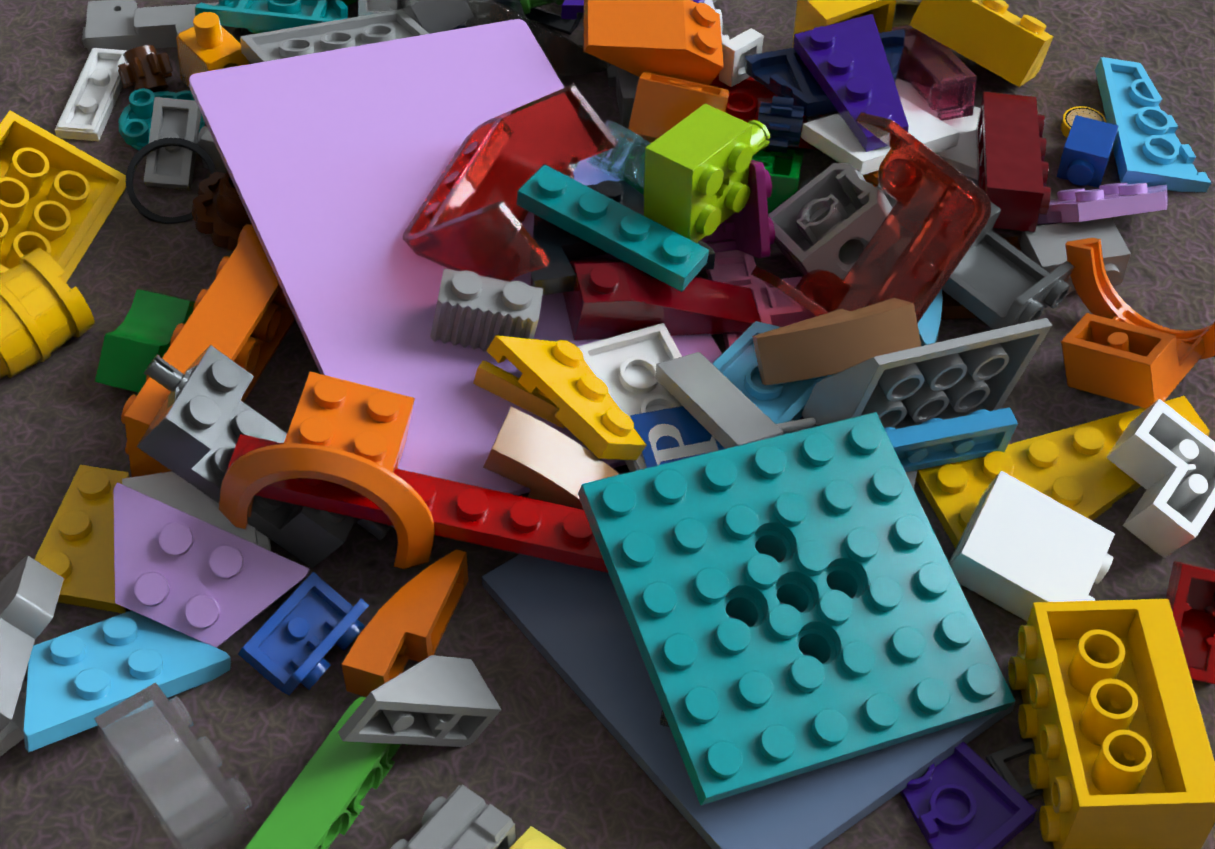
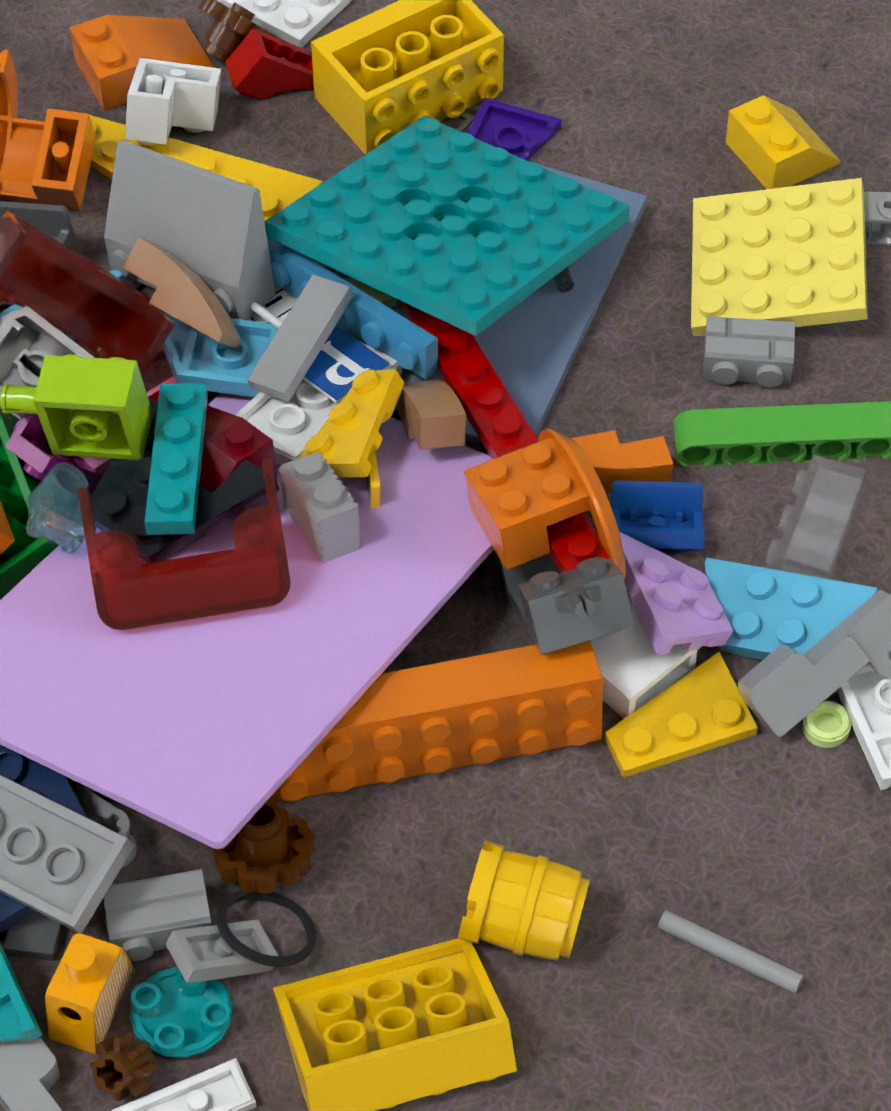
camera: 120 degrees left, 5 degrees up
(140, 338) = (483, 792): green brick -> none
(428, 704) = (674, 392): light grey slope -> none
(1029, 549) = (288, 151): white brick -> none

